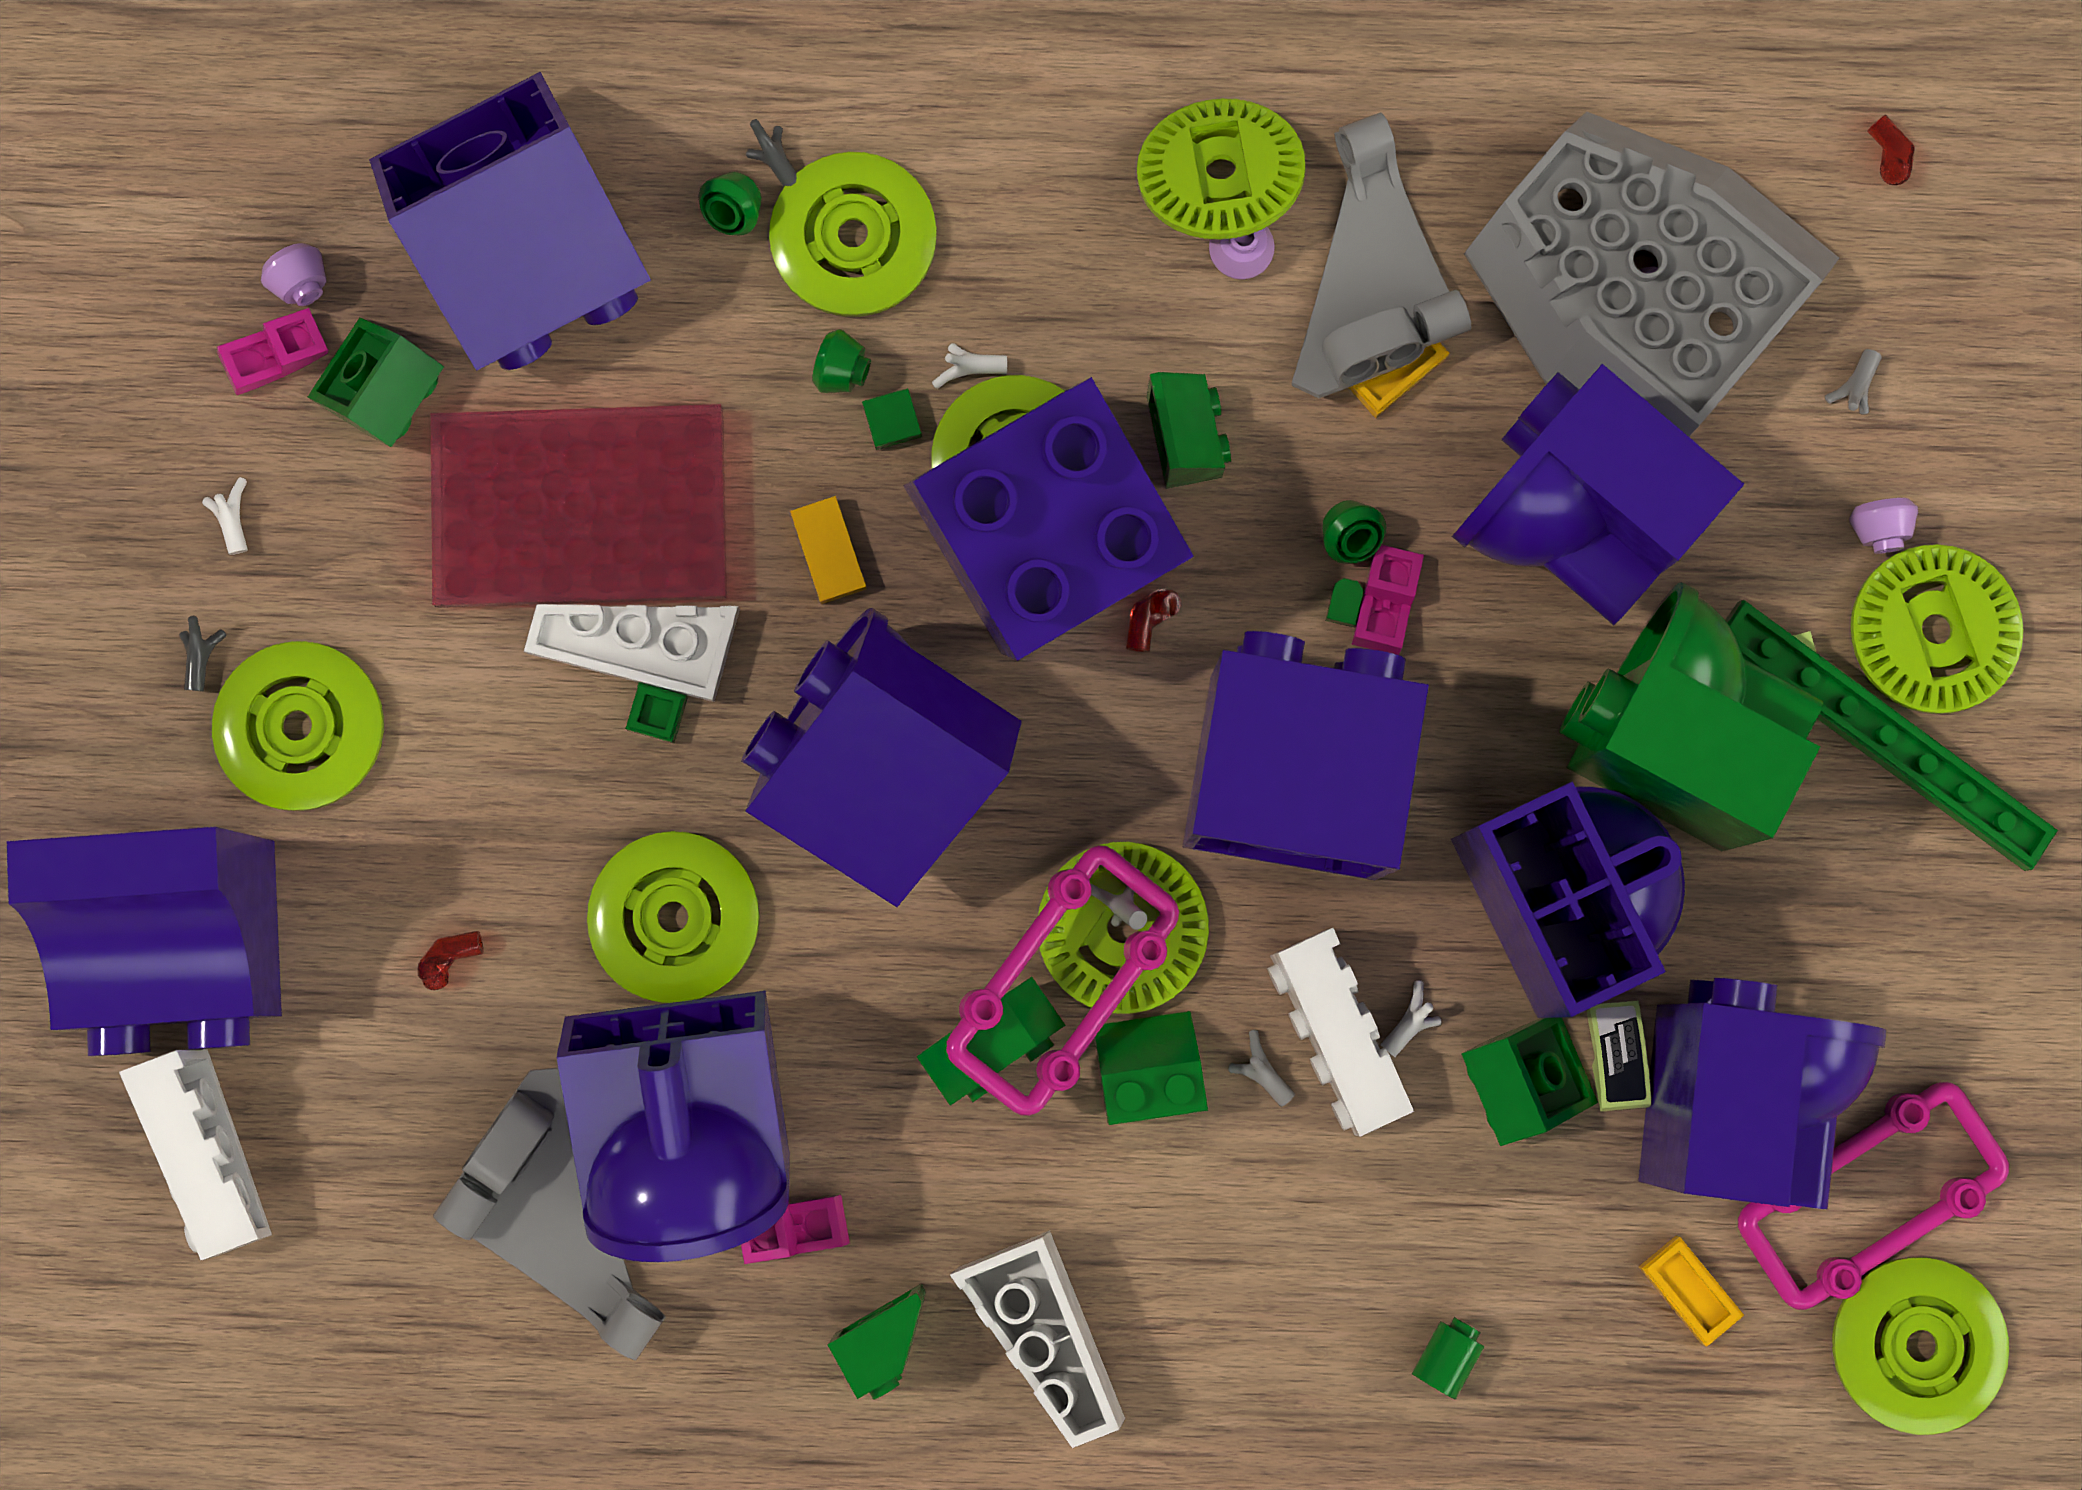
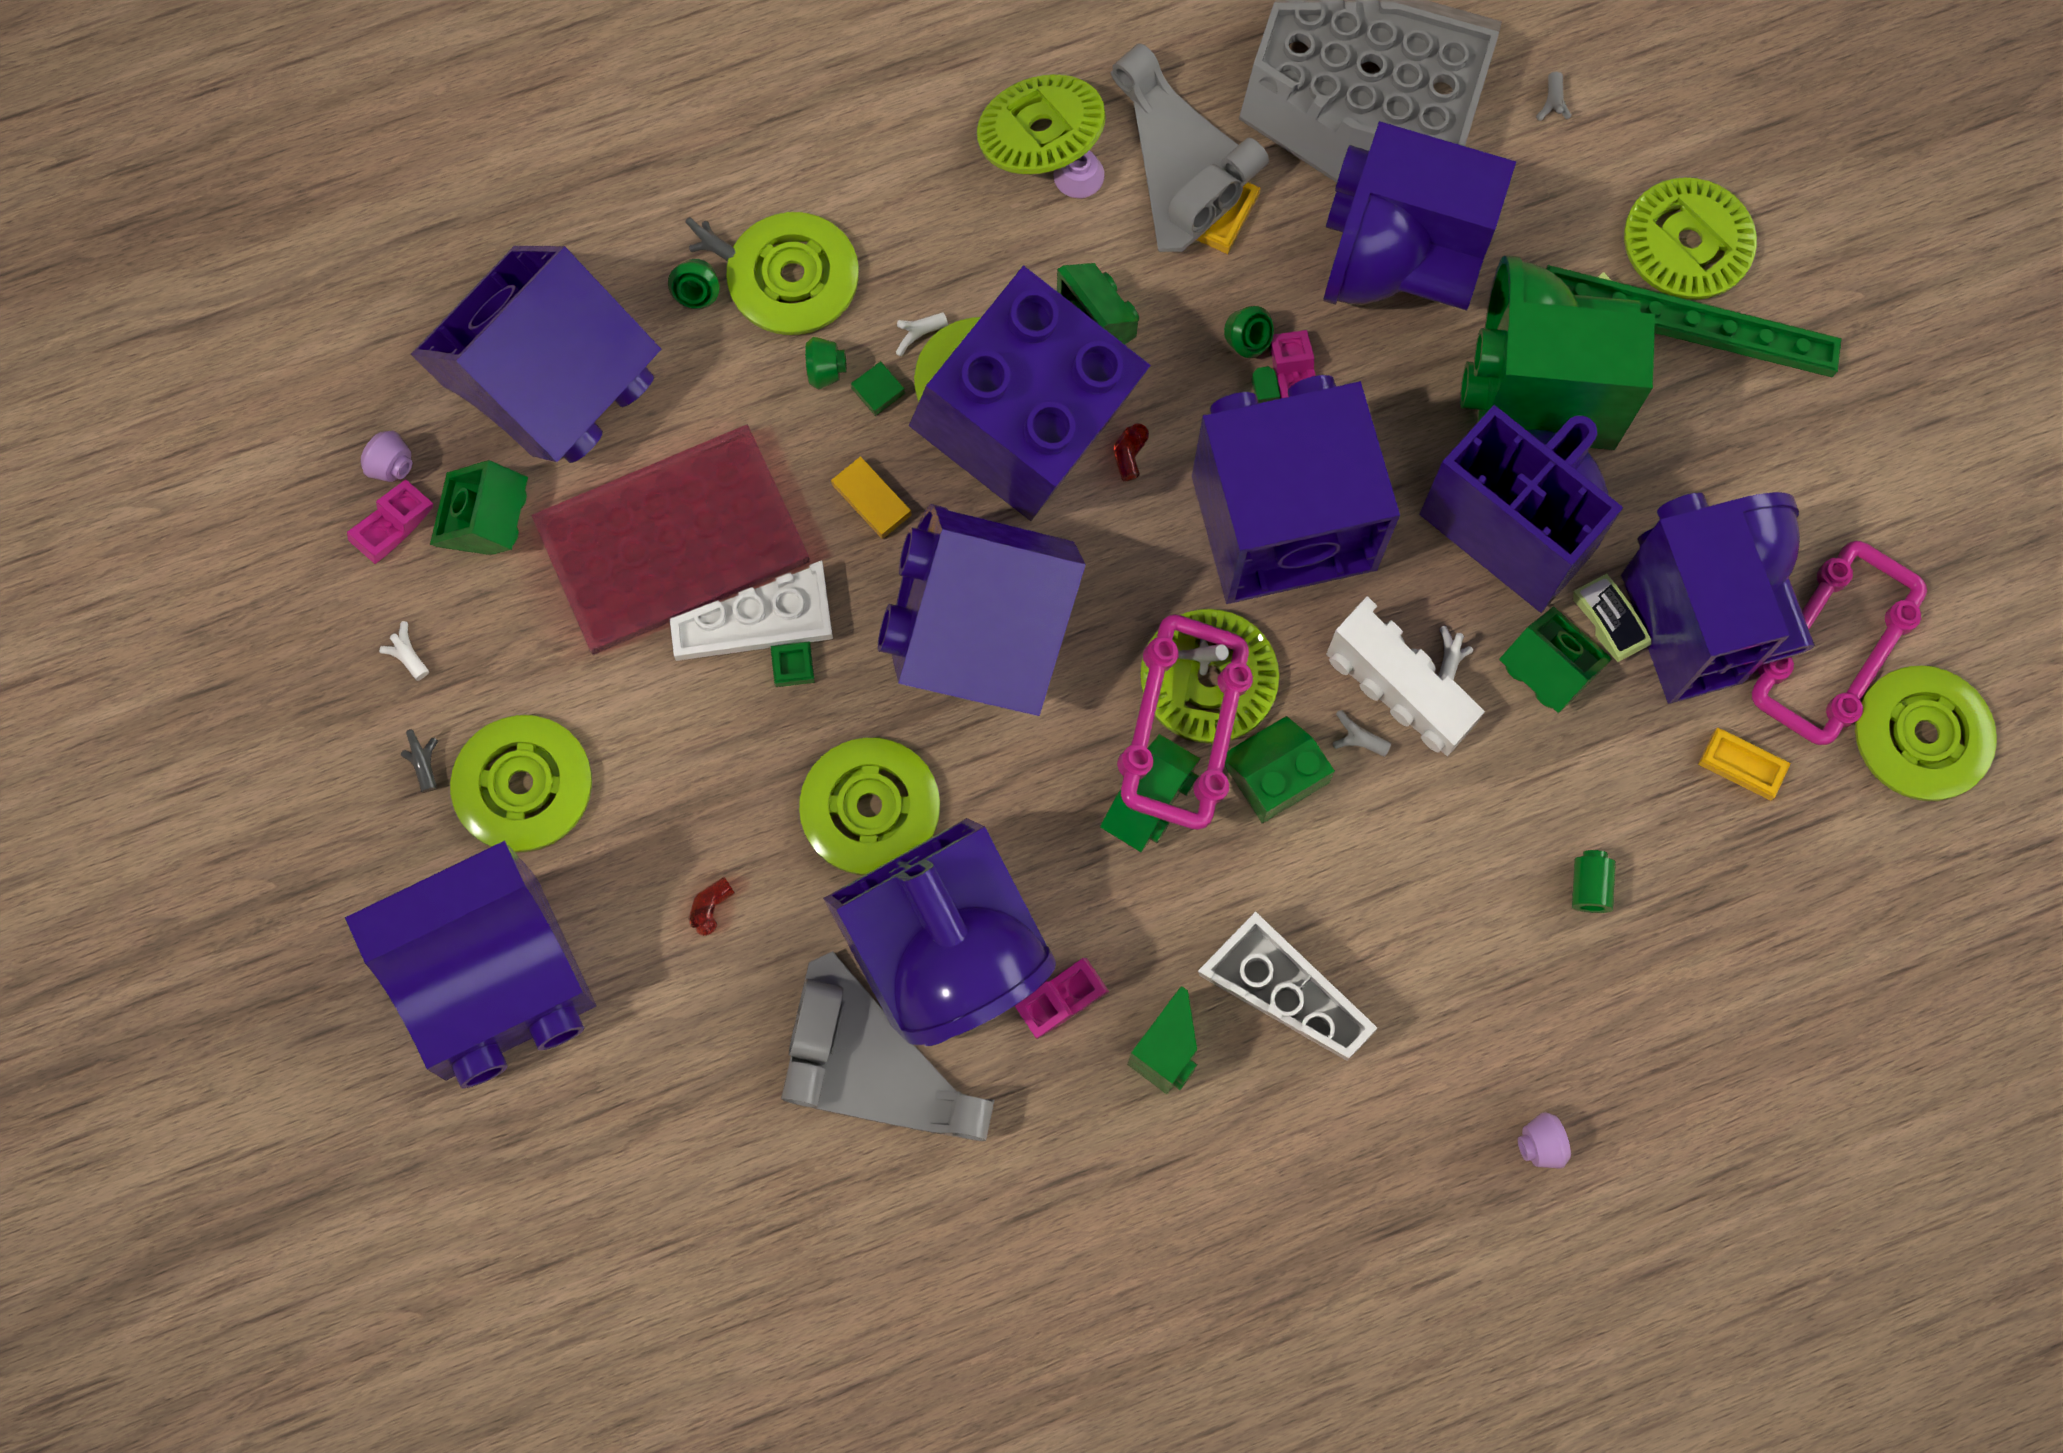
camera: 25 degrees left, 10 degrees down
(197, 1150) = (576, 1127): white wedge -> none
(1885, 523) = (1619, 180): lavender cone -> none

